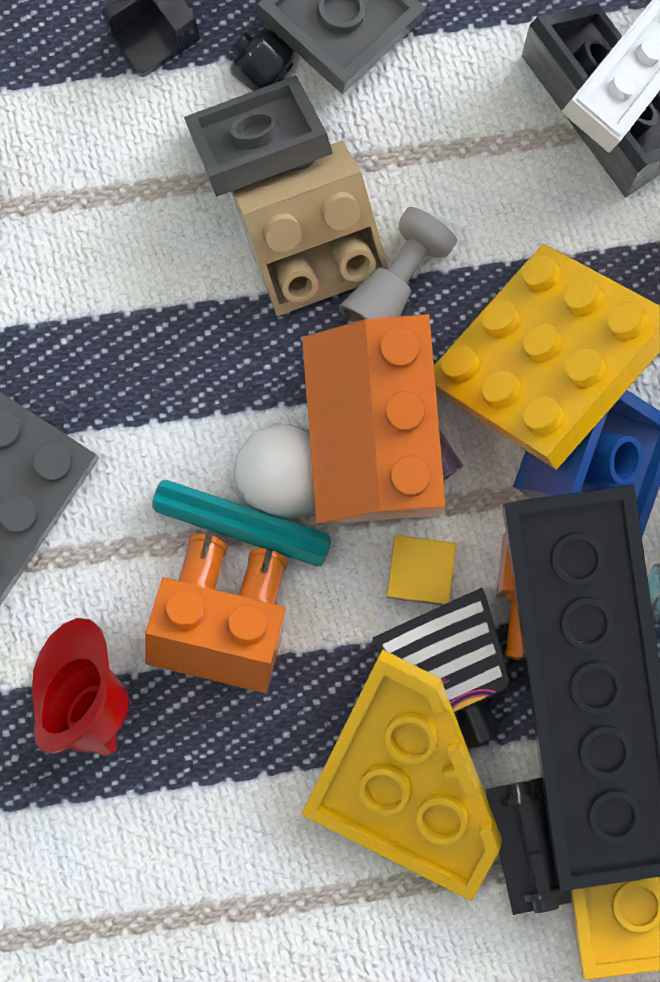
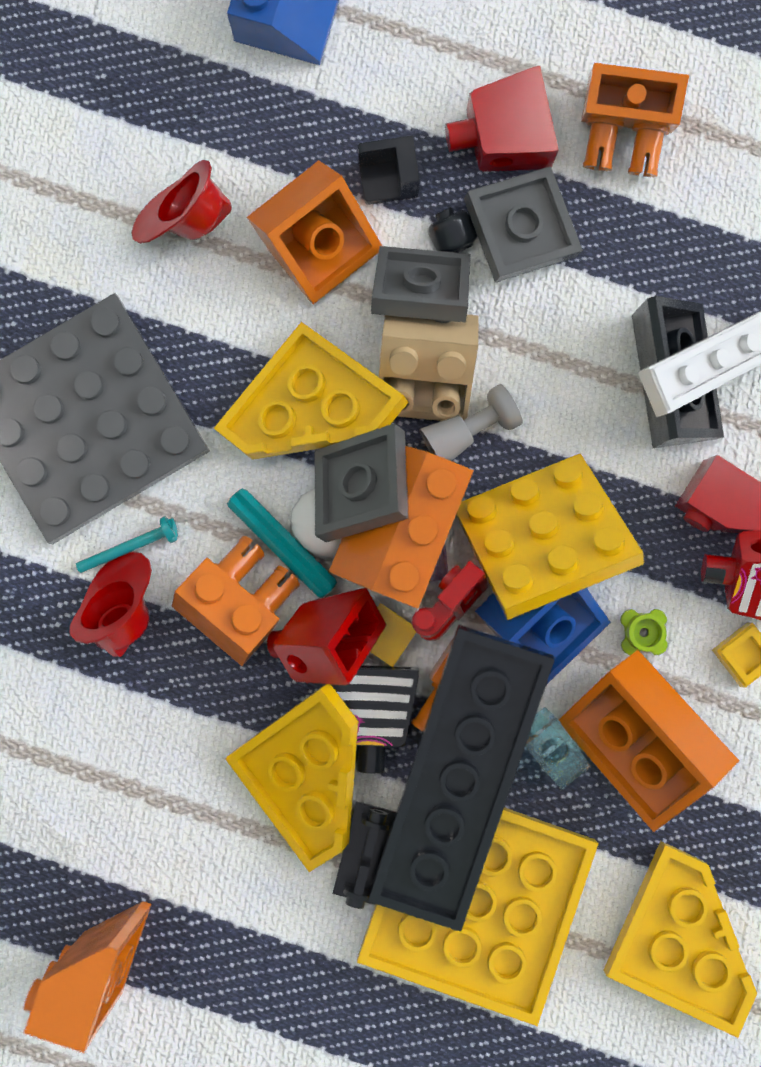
camera: 25 degrees right, 5 degrees up
(94, 575) = (168, 529): none -> teal piece
(100, 135) = (316, 231): none -> orange slope
(191, 335) = (308, 400): none -> yellow plate
(303, 398) = (361, 483): none -> dark grey plate
(354, 602) = (328, 638): none -> red torso
(485, 472) = (459, 592): none -> red plate

